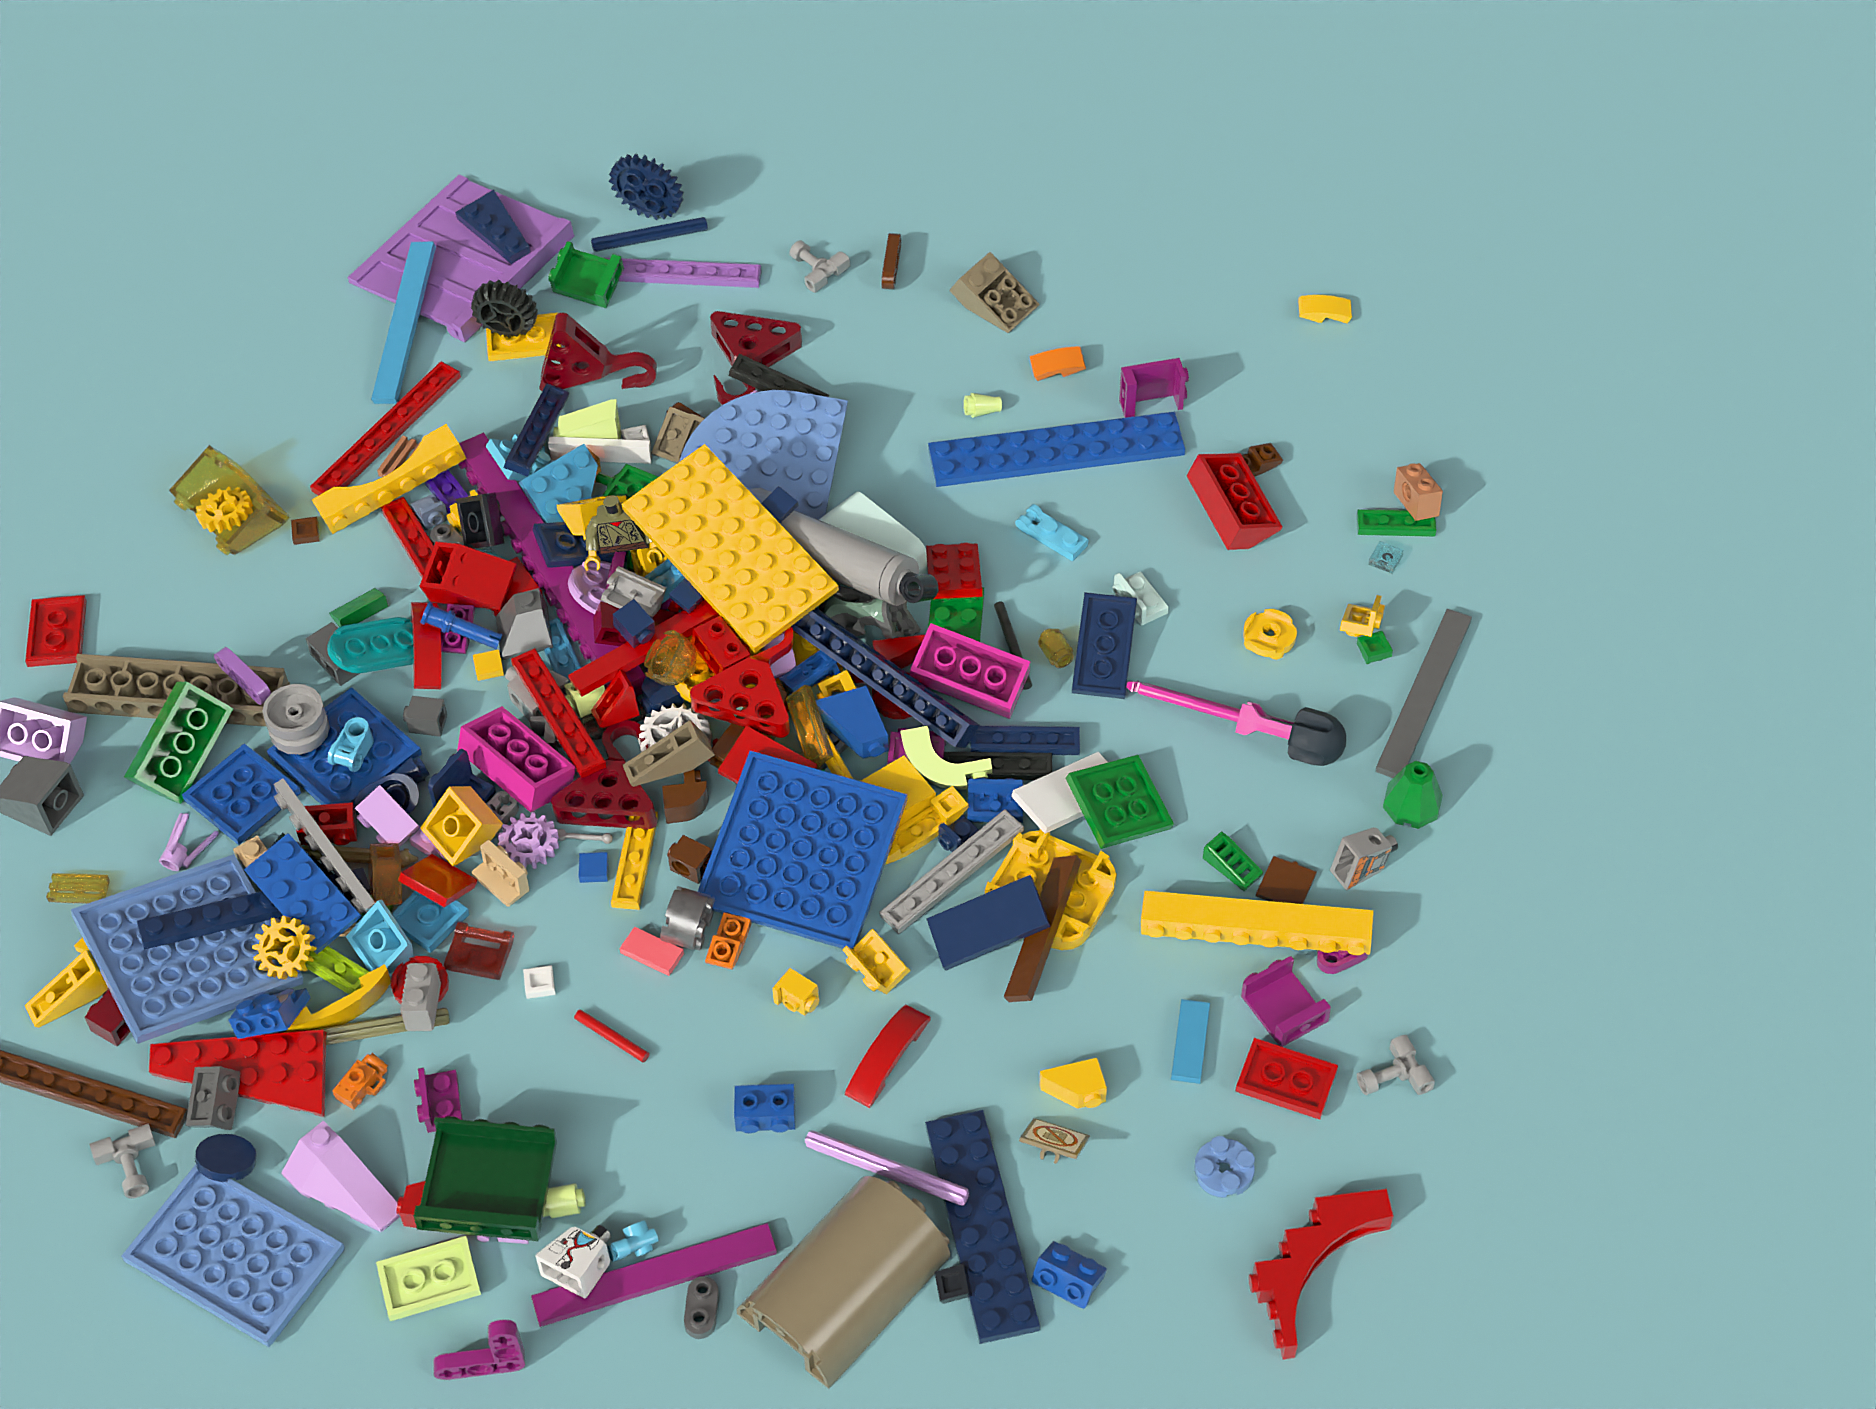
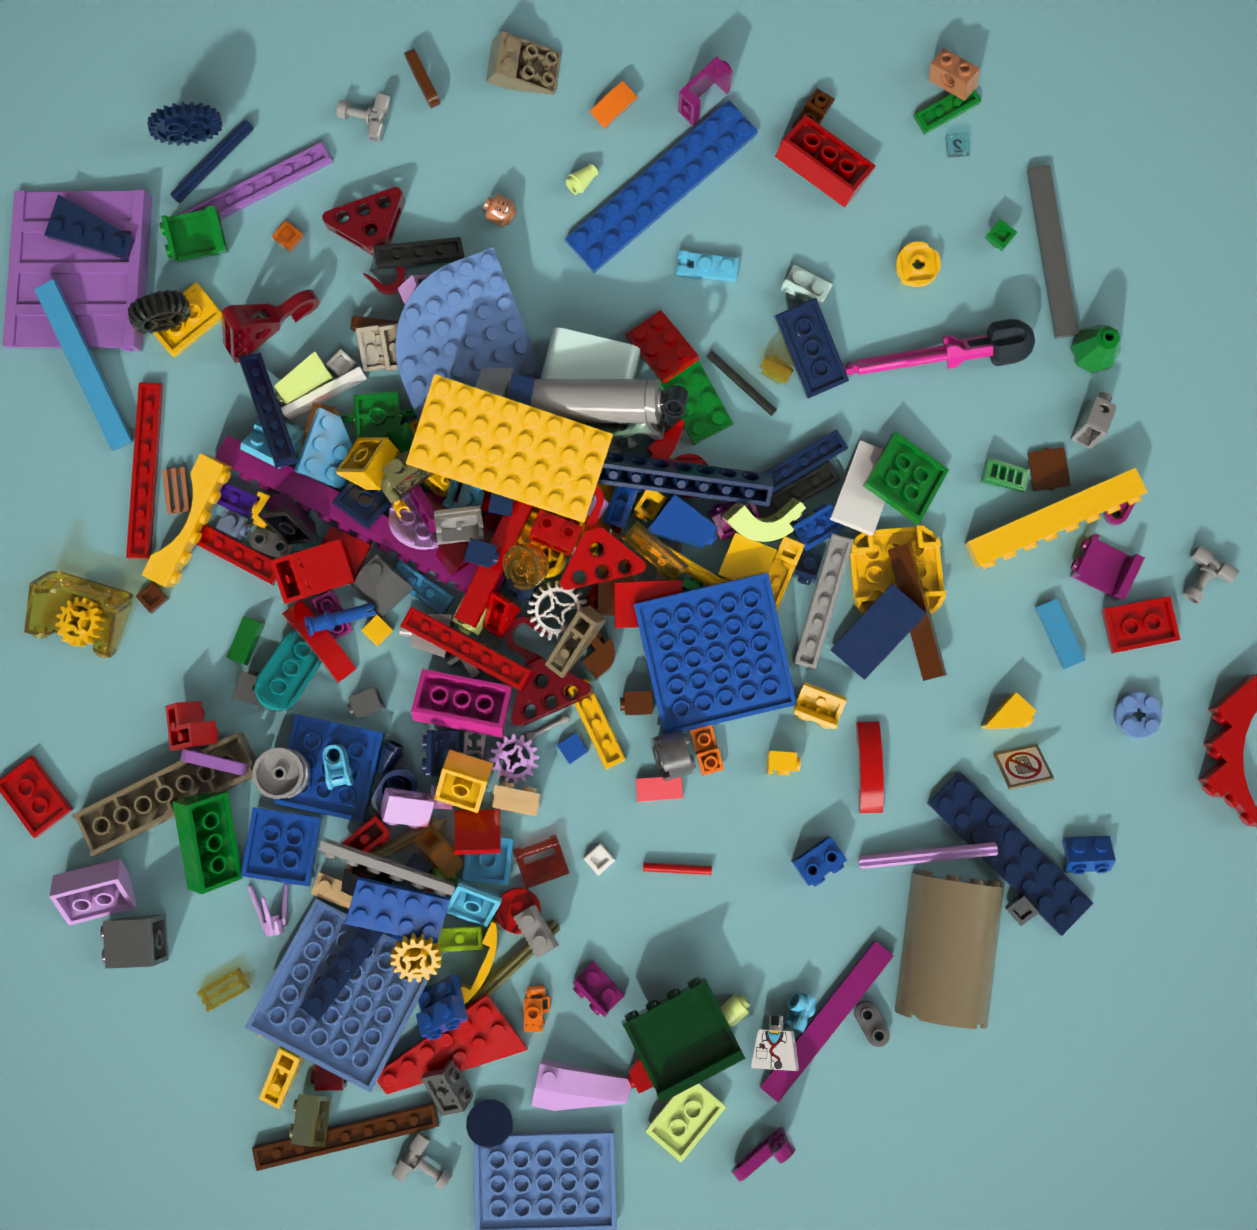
camera: 30 degrees left, 30 degrees up
(59, 1043) = (310, 1120): none -> olive slope
(248, 638) = (187, 726): none -> red brick
(670, 320) = (287, 236): none -> orange tile
(882, 390) = (499, 210): none -> nougat head
(970, 670) = (736, 433): dark pink brick -> none
(1362, 620) = (980, 214): yellow bracket -> none

